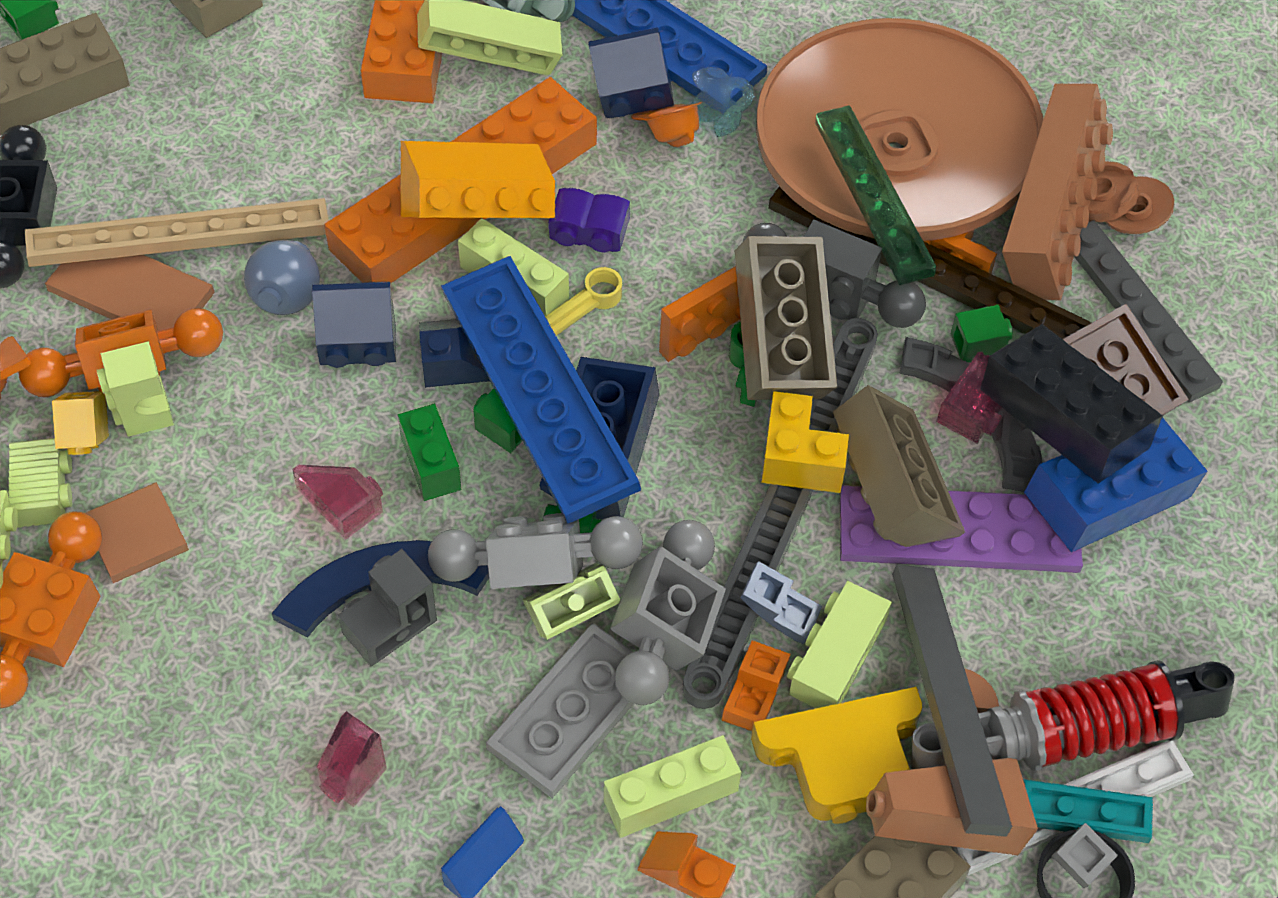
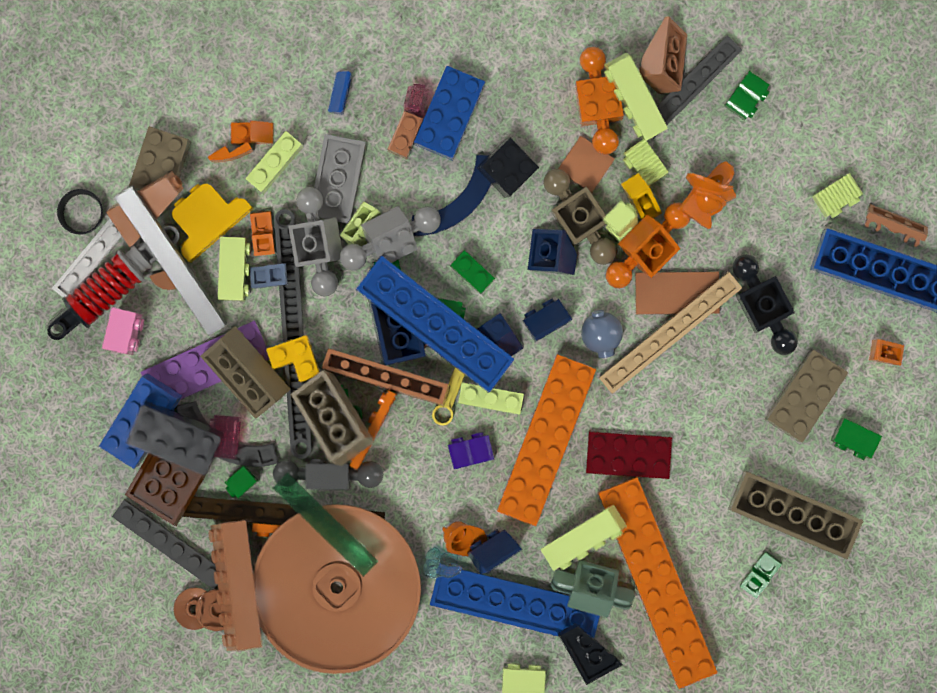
camera: 160 degrees right, 30 degrees up
(198, 450) = (579, 216): none -> dark tan brick
(265, 575) = (507, 167): none -> black brick
(284, 421) = (551, 252): none -> dark blue slope
(286, 725) = (449, 113): none -> blue brick
(340, 495) = (500, 229): clear pink slope -> none
(353, 121) = (628, 455): none -> dark red plate
(394, 610) = (442, 179): dark grey brick -> none
(410, 716) = (405, 135): none -> nougat brick
(475, 180) = (528, 425): light orange slope -> none
(681, 373) = (386, 377): none -> nougat brick
(760, 846) = (225, 155): none -> orange slope
(1084, 855) = (83, 216): light grey plate -> none
(1089, 626) = (123, 331): none -> bright pink brick
(1106, 812) = (91, 243): teal tile -> none

